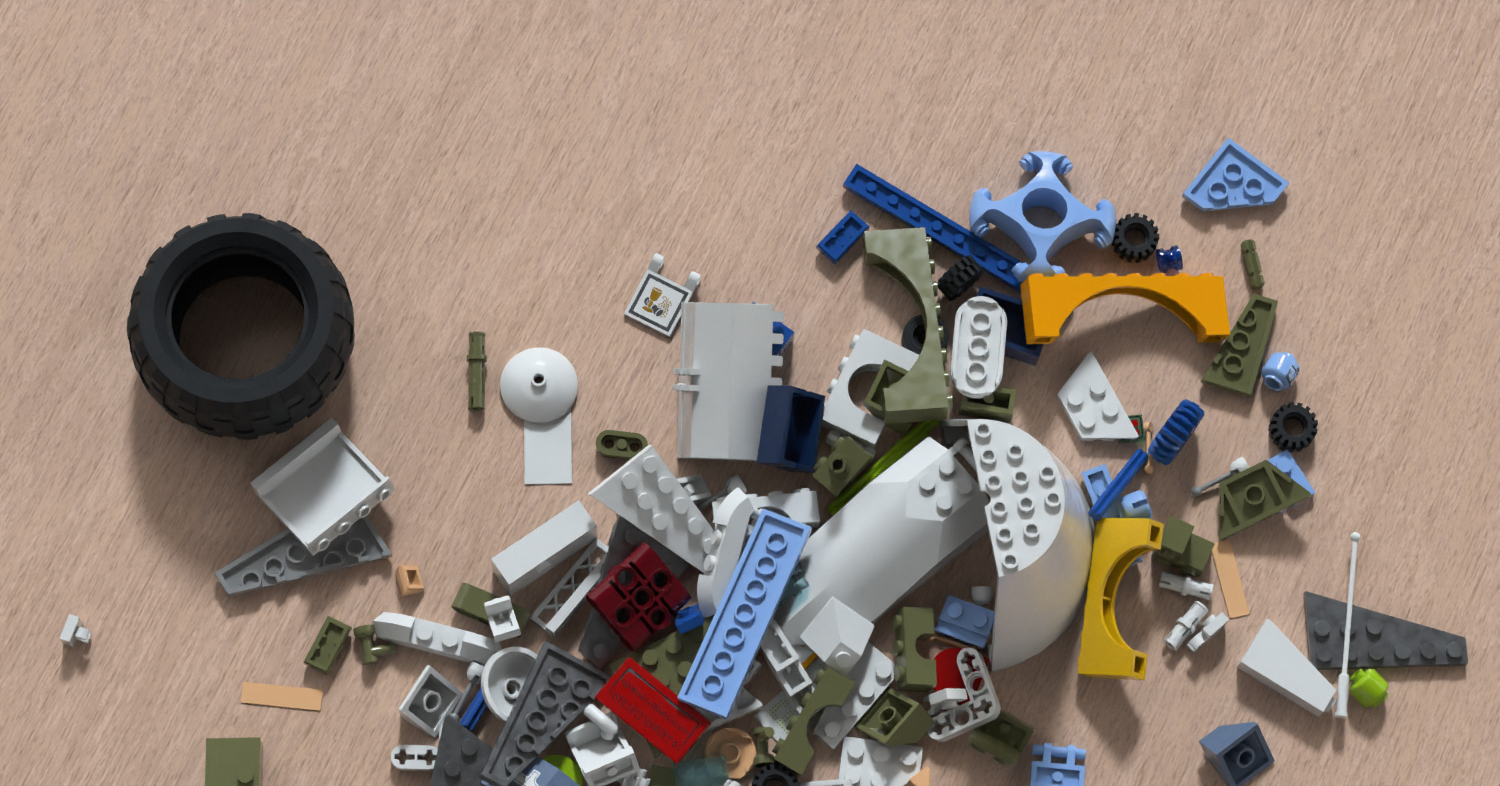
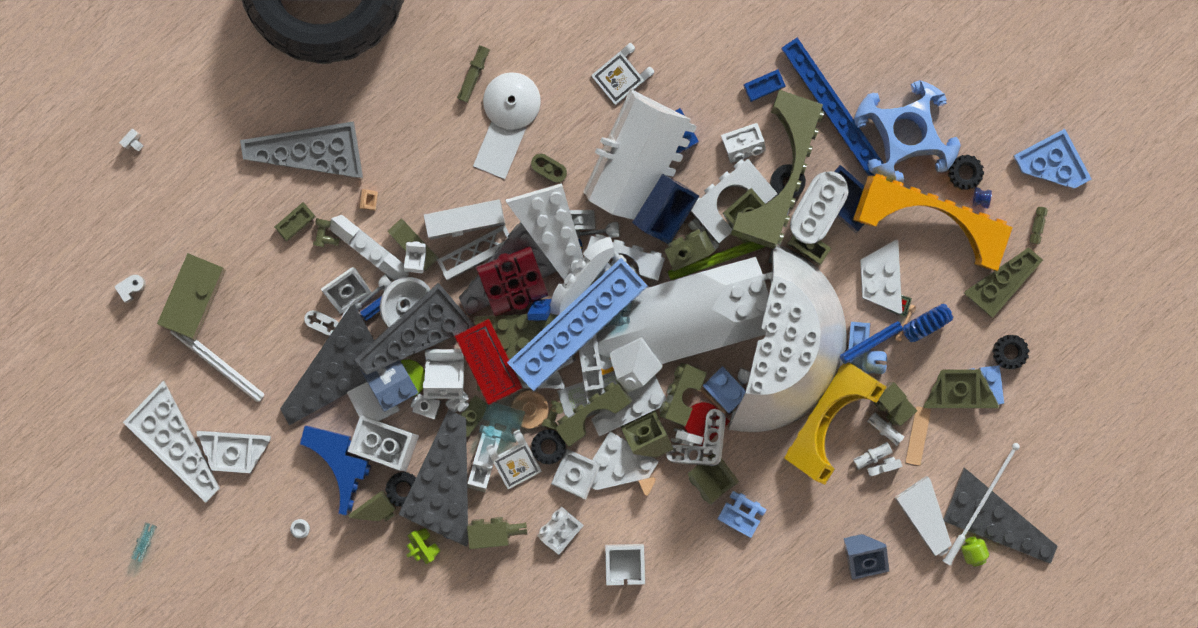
camera: 30 degrees right, 15 degrees up
(281, 696) = (251, 242): light nougat sticker -> none
(322, 487) = (335, 112): white panel -> none
(607, 726) = (454, 358): white arm -> none
(849, 314) = (743, 143): none -> white bracket
(959, 277) = (830, 150): black tyre -> none
(1236, 467) = (959, 363): light grey hinge -> none
(1280, 371) = (1020, 309): light blue head -> none

